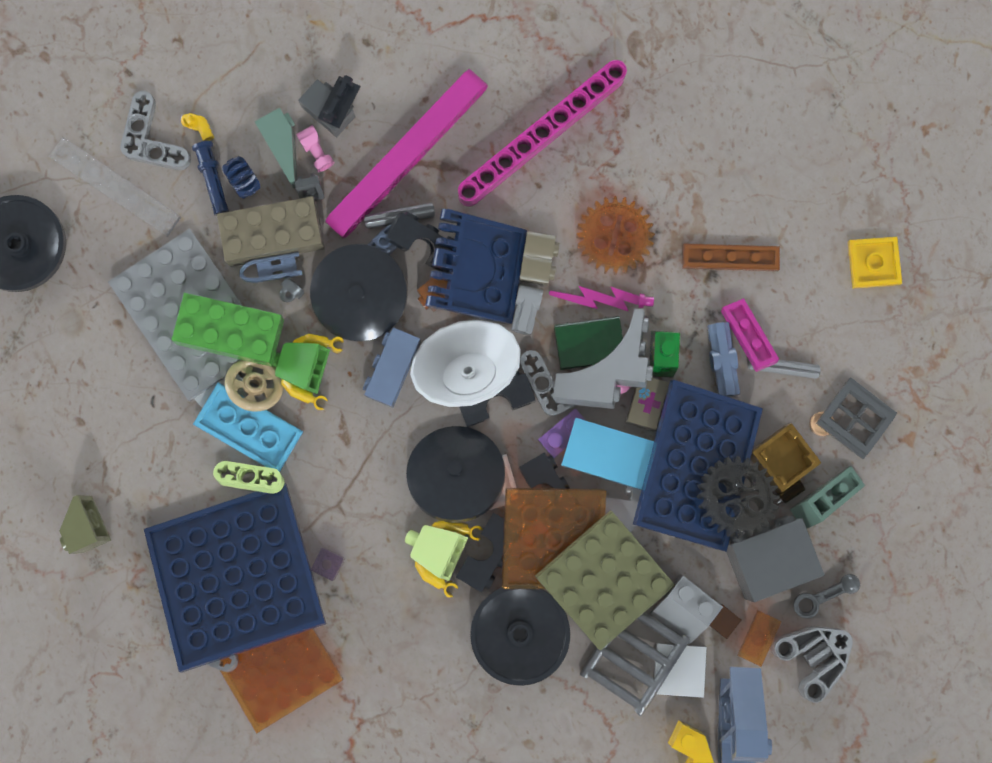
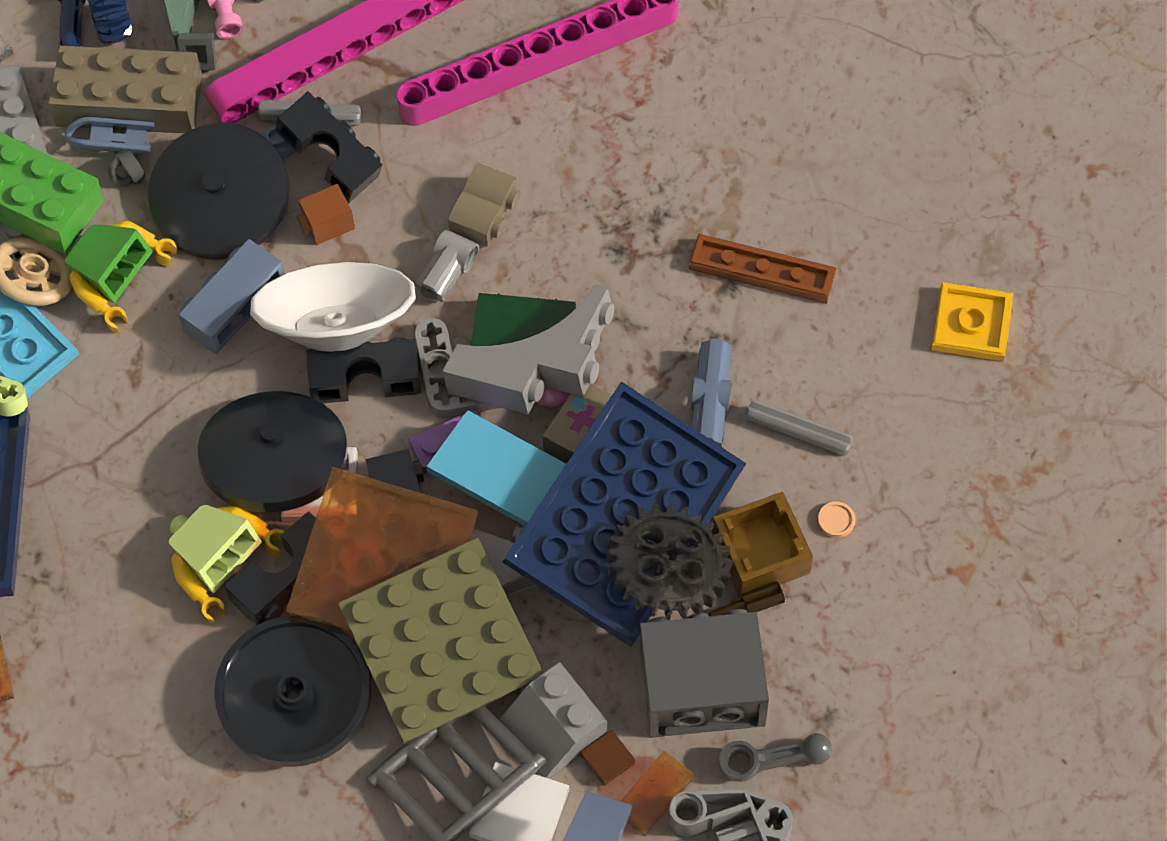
camera: 20 degrees right, 20 degrees down
(336, 564) = (48, 541): clear purple plate -> none
(481, 267) = (395, 191): dark blue hinge -> none
(594, 229) = (629, 212): clear orange gear -> none
(616, 301) = (547, 271): dark pink piece -> none
(664, 353) = (626, 354): green torso -> none
(750, 335) = (757, 368): dark pink plate -> none
(828, 497) = (813, 616): sand green slope -> none
(843, 435) = (864, 541): dark grey piece -> none

